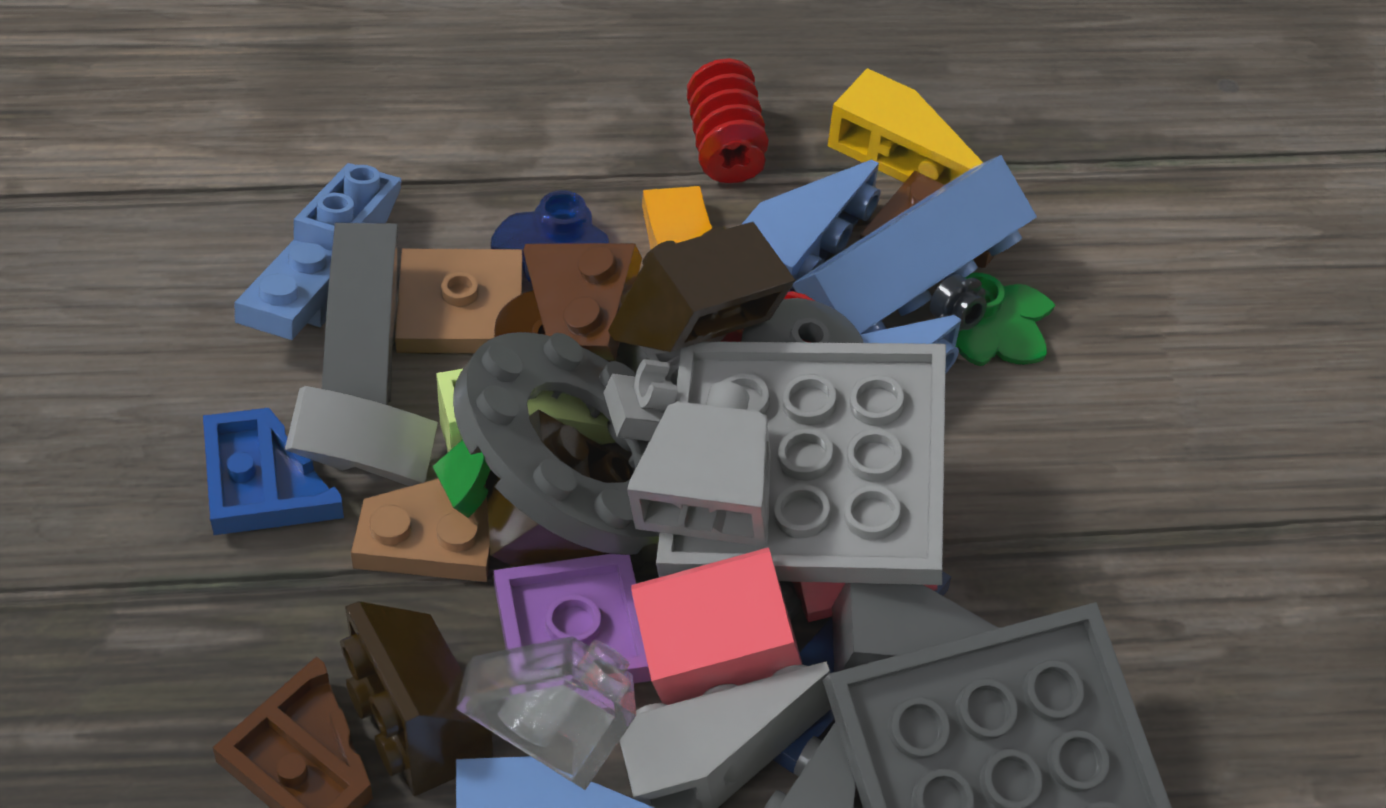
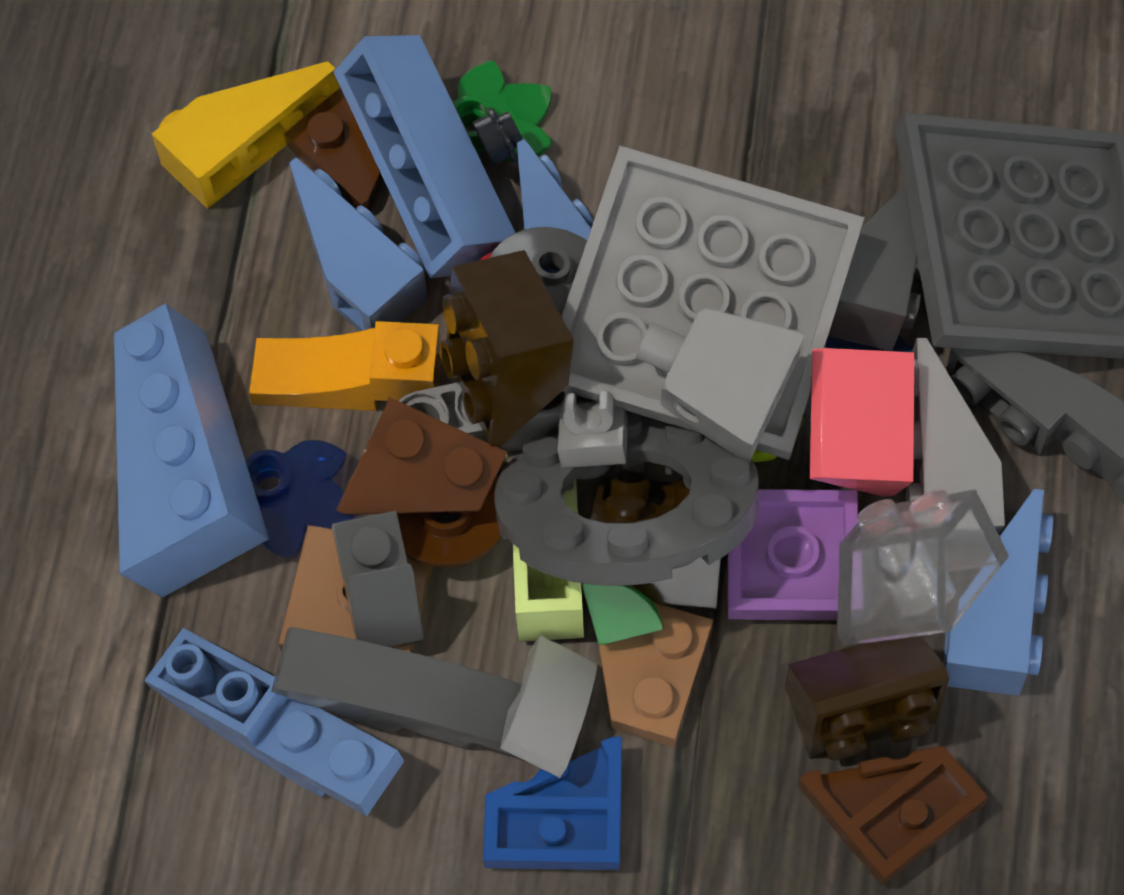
camera: 70 degrees left, 15 degrees up
(453, 293) = (378, 580): none -> dark grey slope
(563, 139) = (179, 457): none -> medium blue wedge
(727, 121) = (187, 289): red piece -> none

